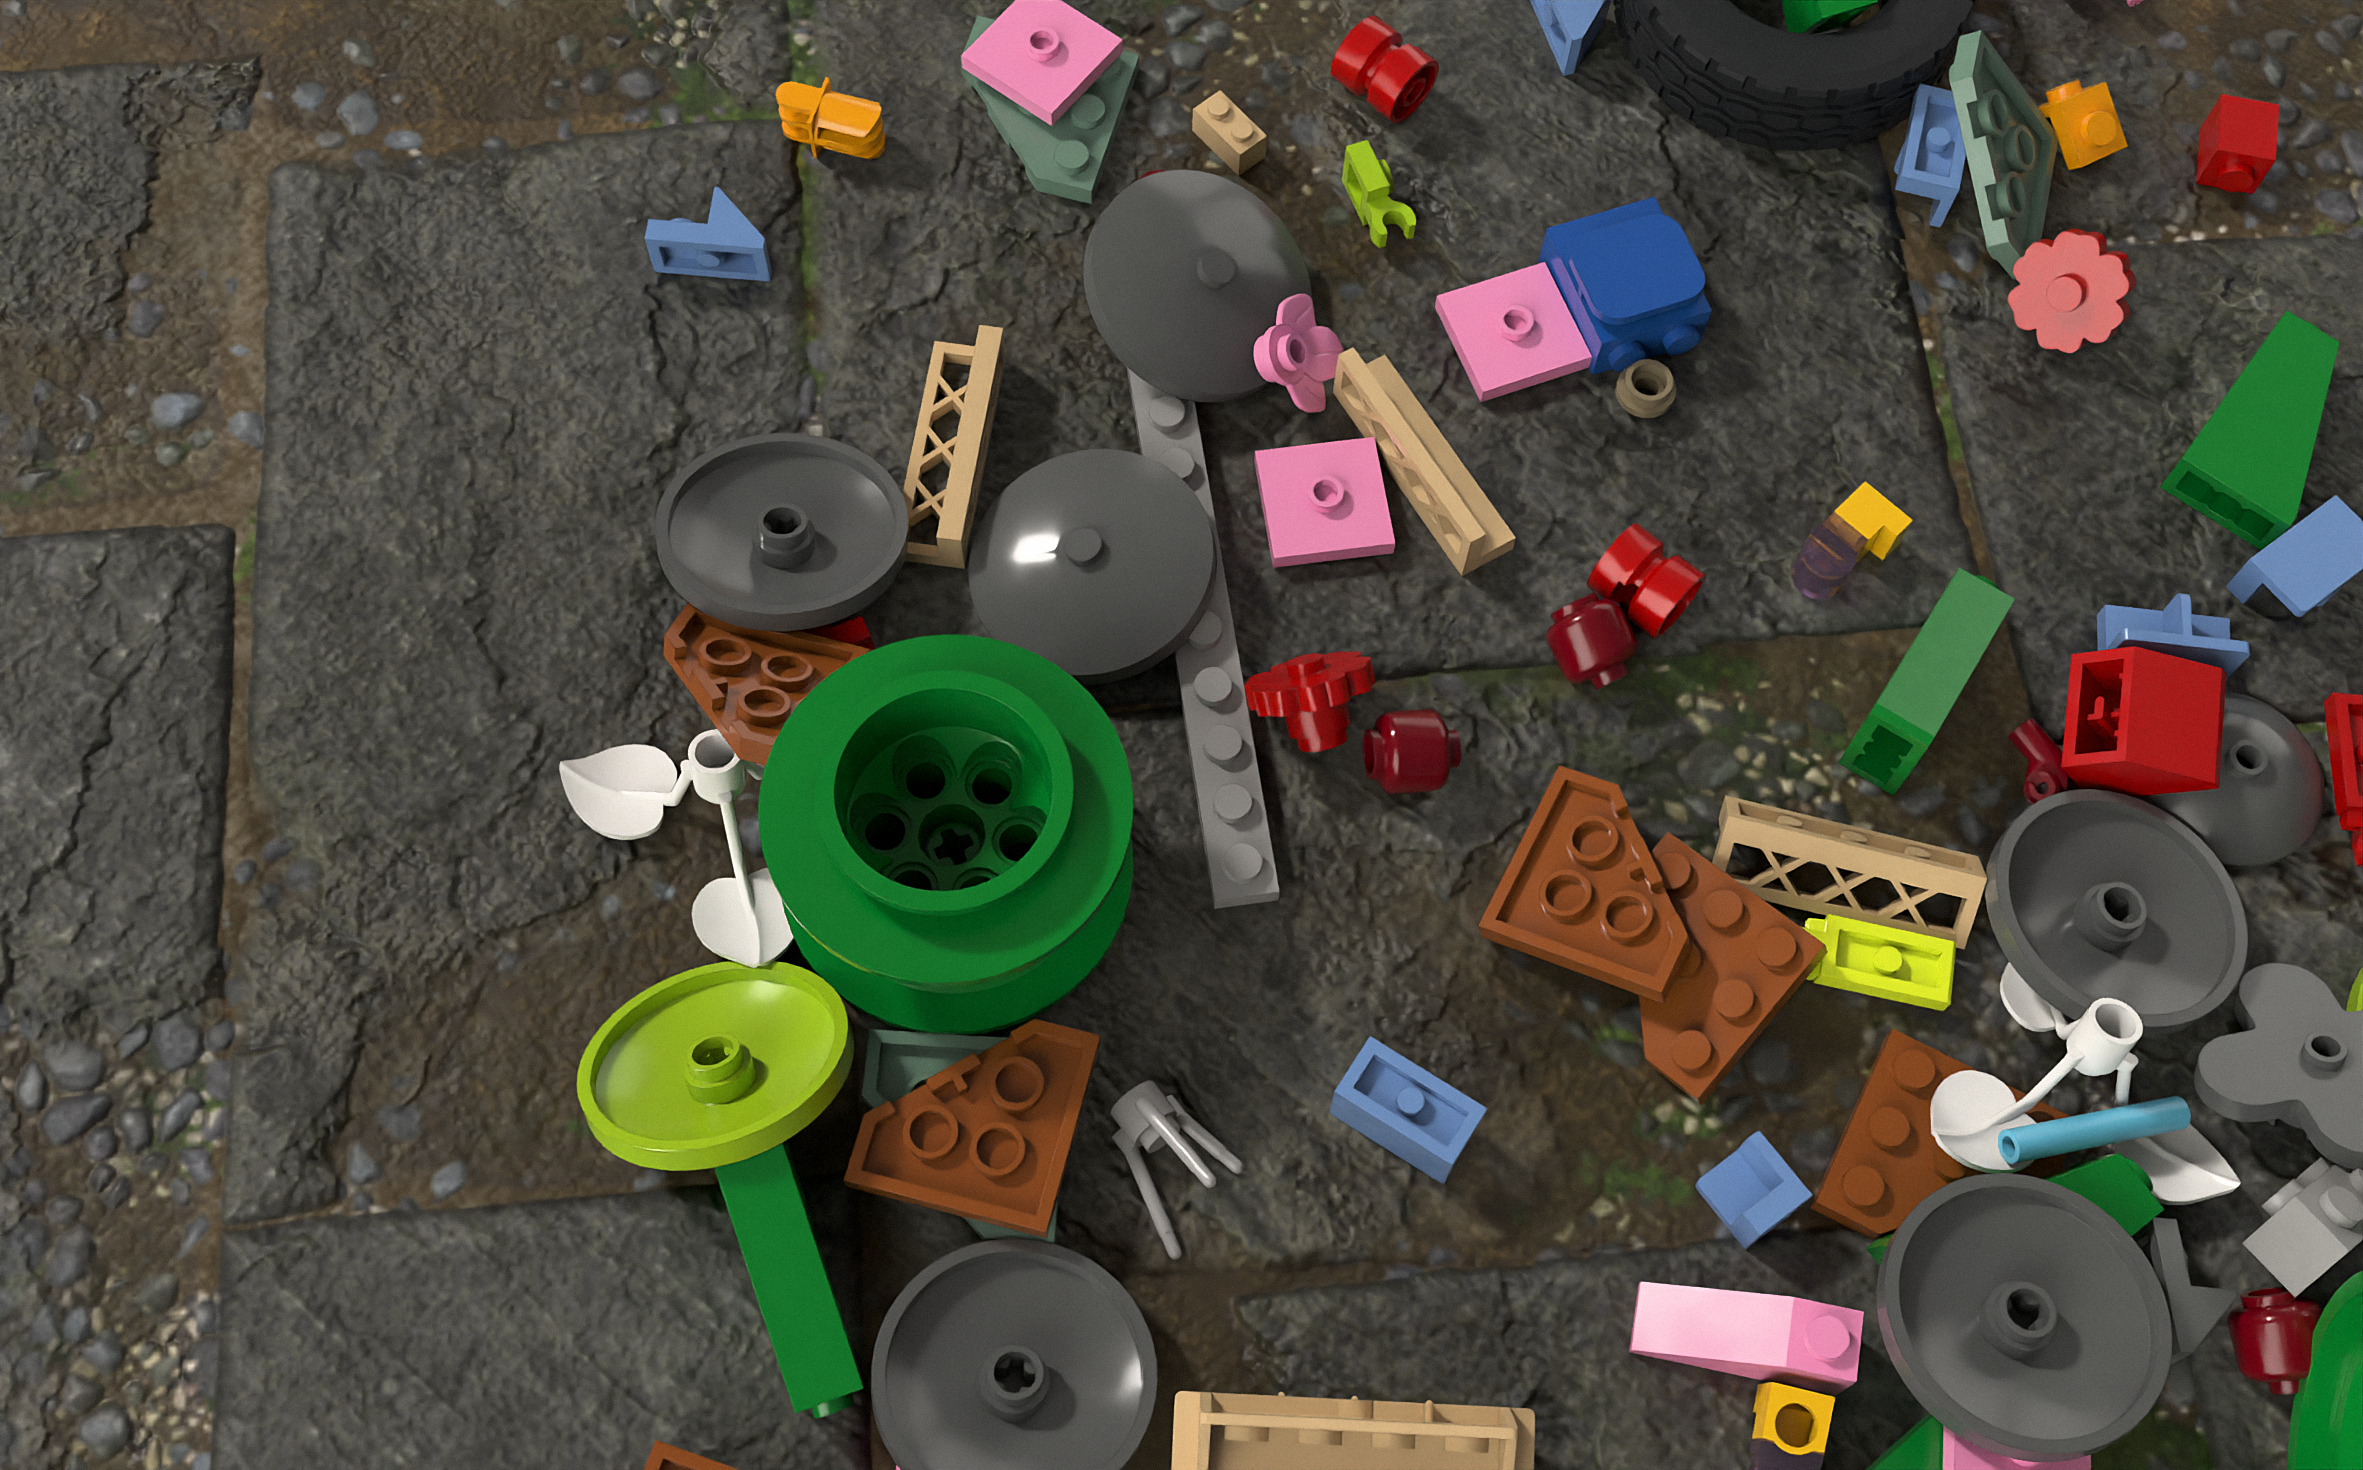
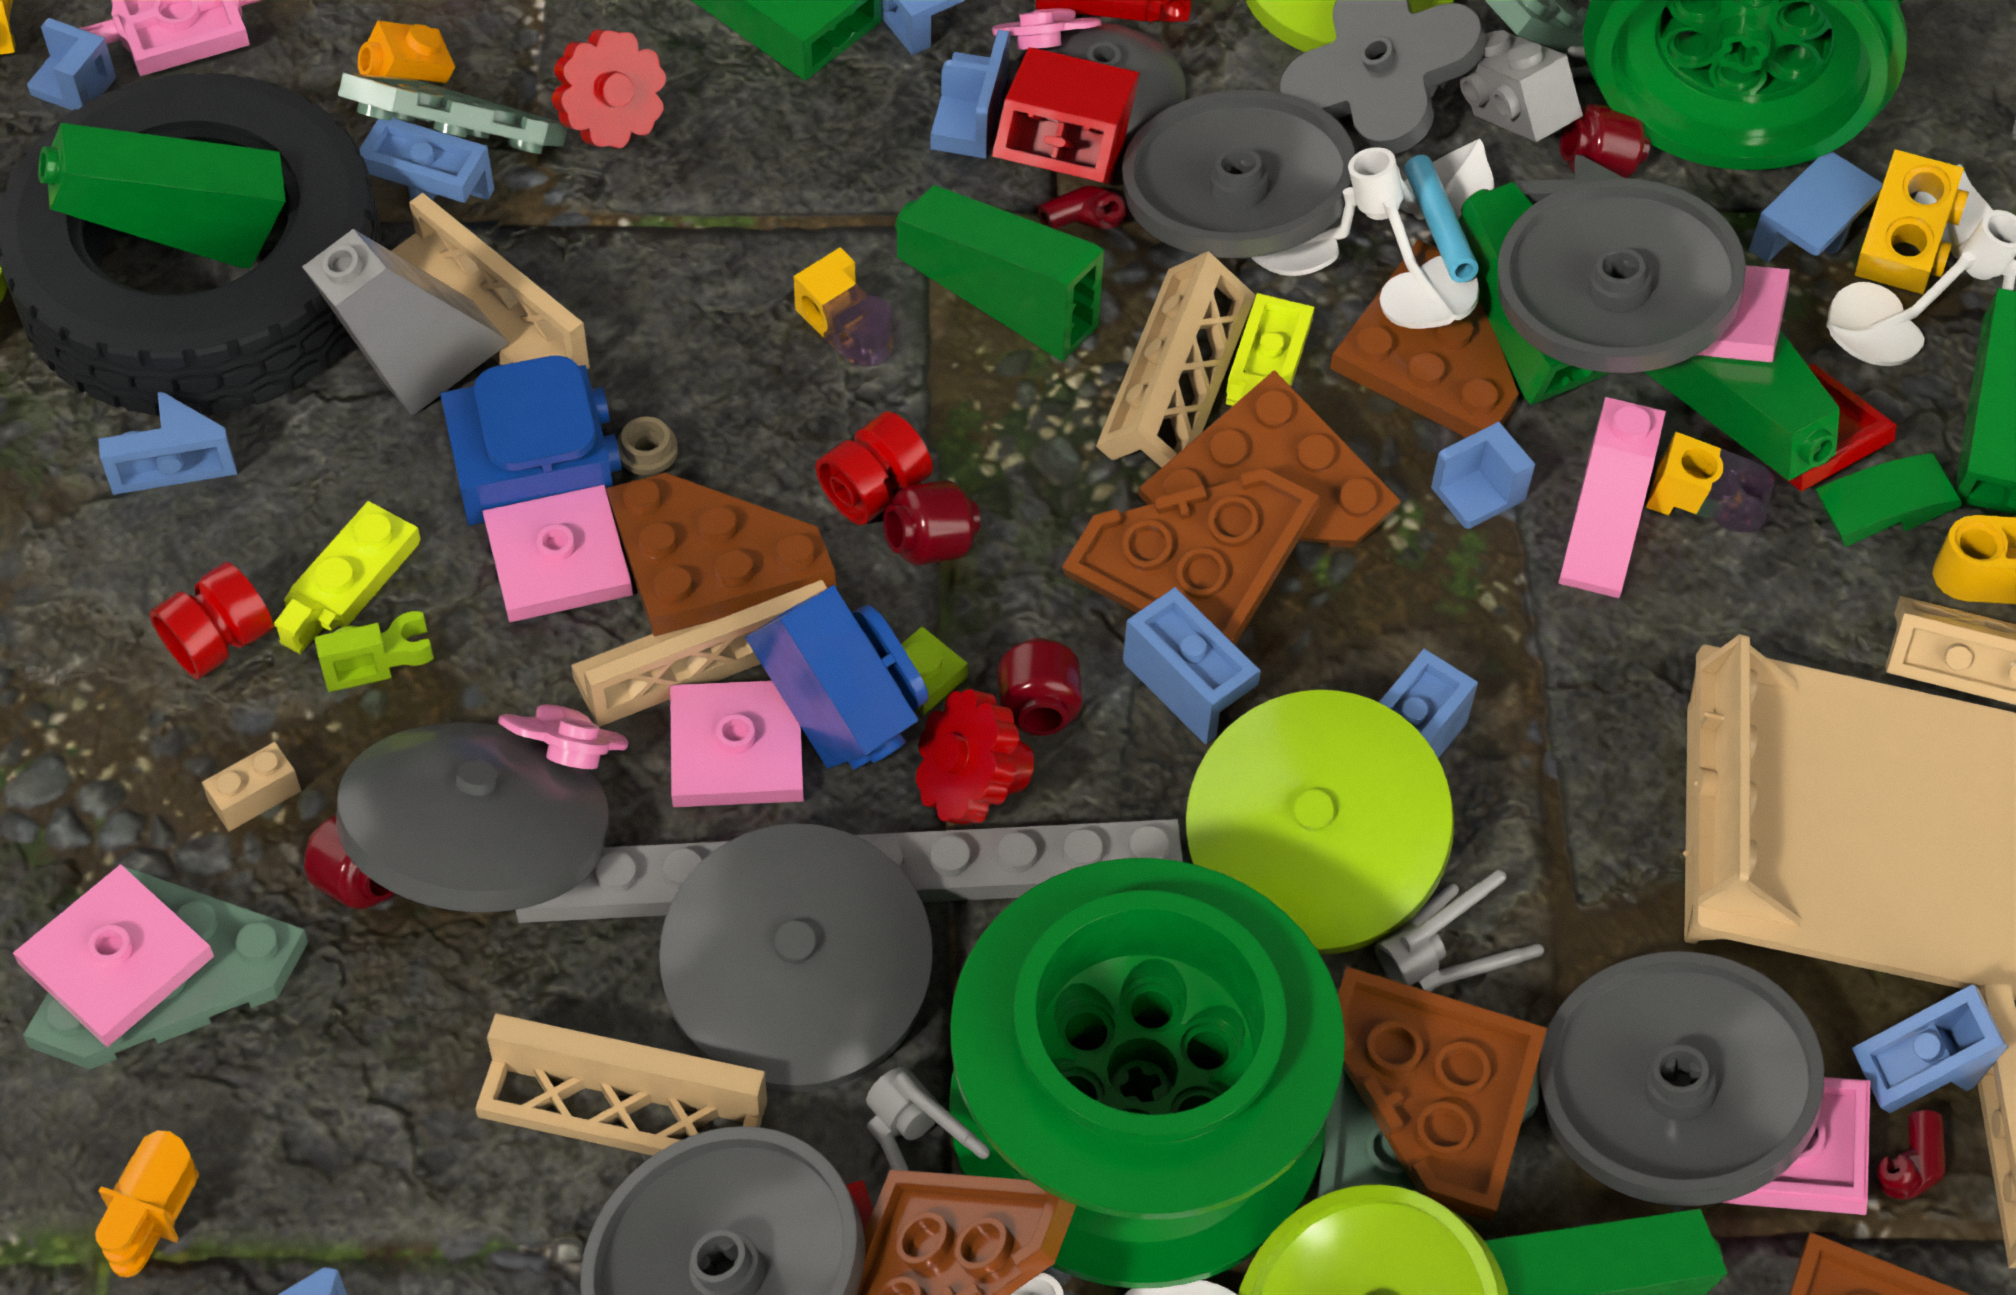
camera: 85 degrees left, 10 degrees down
(1276, 1017) = (1325, 814): none -> lime dish
(1366, 552) = (841, 677): none -> blue brick
(1427, 654) = (937, 665): none -> lime plate
(1455, 884) = (1187, 662): none -> medium blue panel
(1459, 169) = (345, 575): none -> neon yellow hinge
(1525, 452) = (709, 552): none -> dark orange plate
(1711, 135) = (403, 319): none -> light grey slope
(1789, 233) = (514, 304): none -> tan fence
(2271, 690) = (1044, 27): none -> bright pink plate

